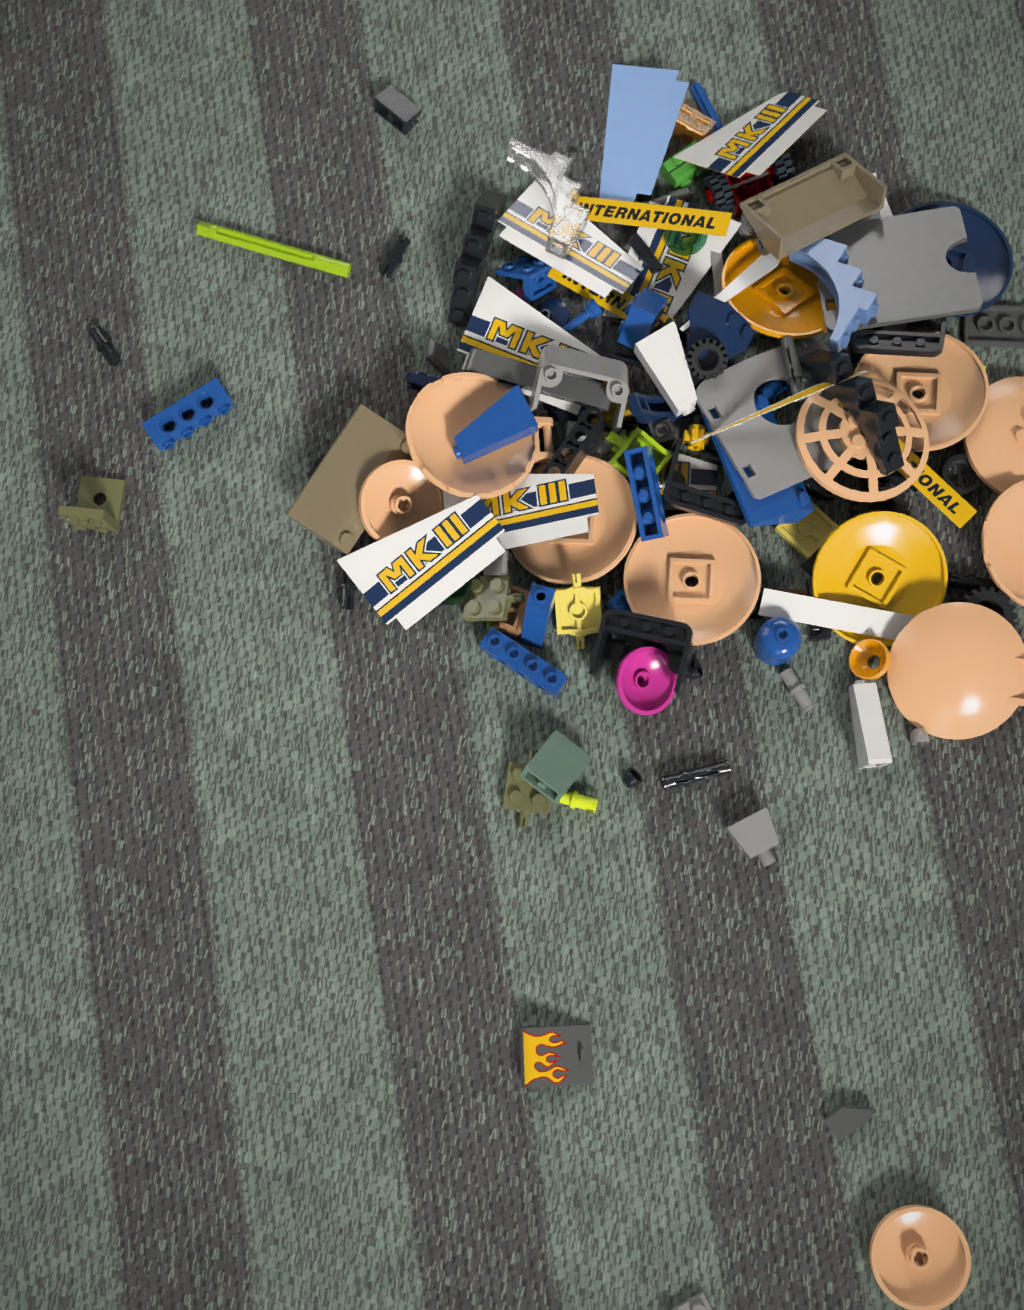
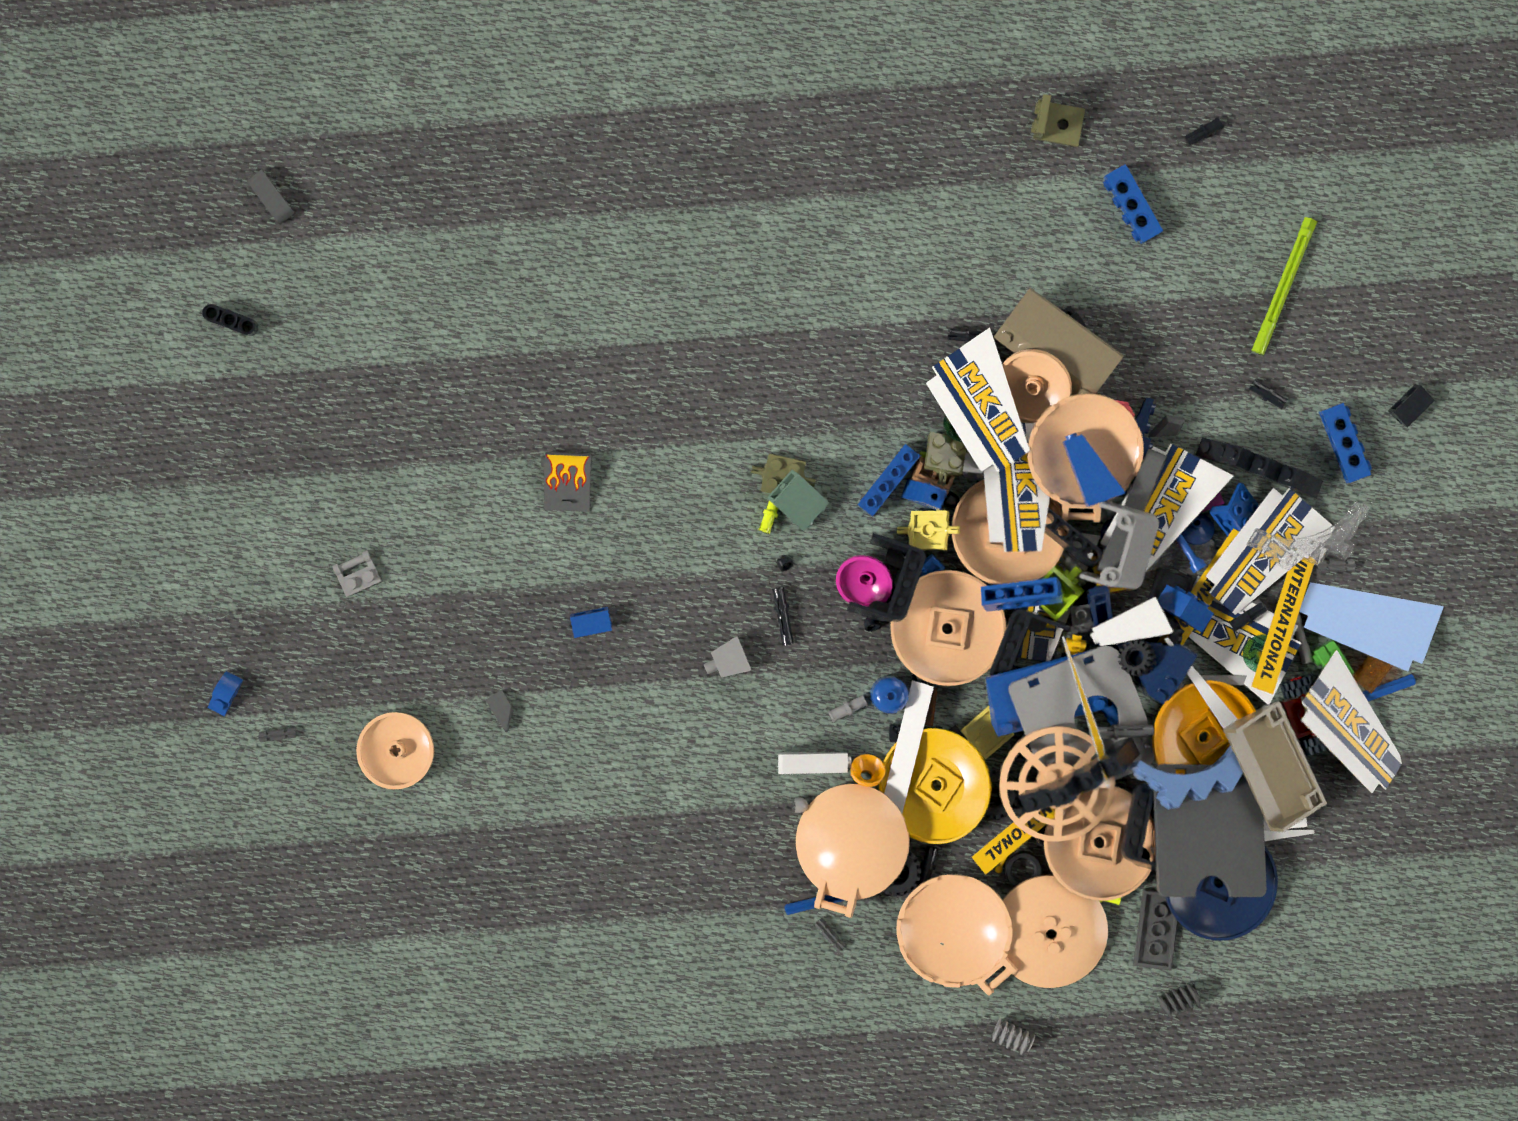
camera: 85 degrees right, 10 degrees up
(436, 181) = (1336, 436): none -> blue brick
(727, 1012) = (591, 622): none -> blue hinge

